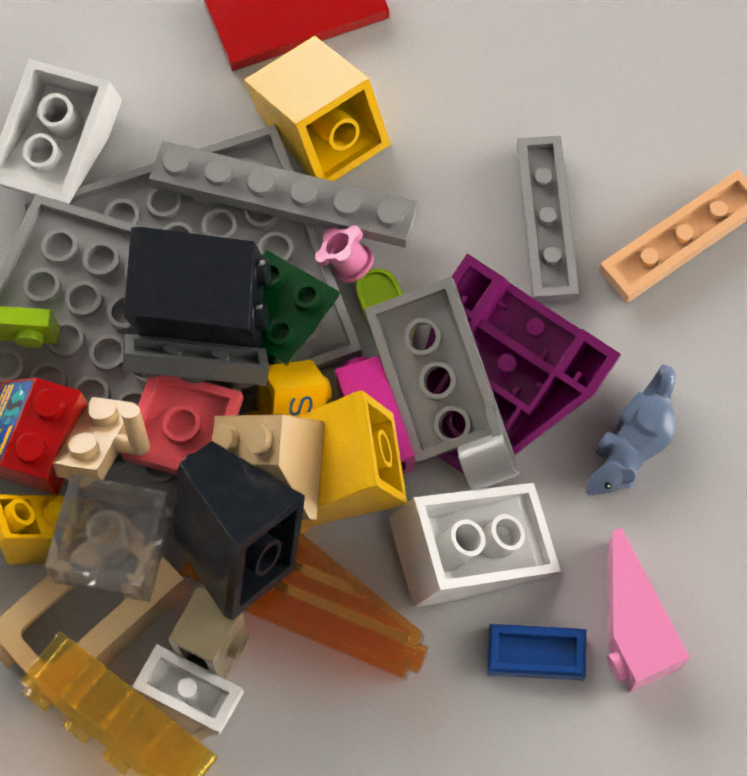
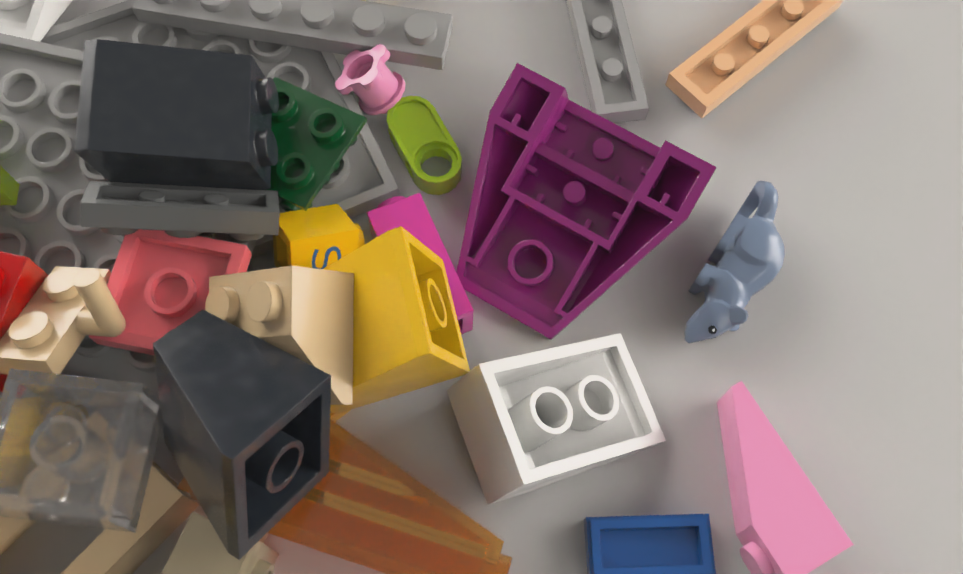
camera: 10 degrees left, 0 degrees up
(484, 444) = (558, 286): light grey hinge -> none

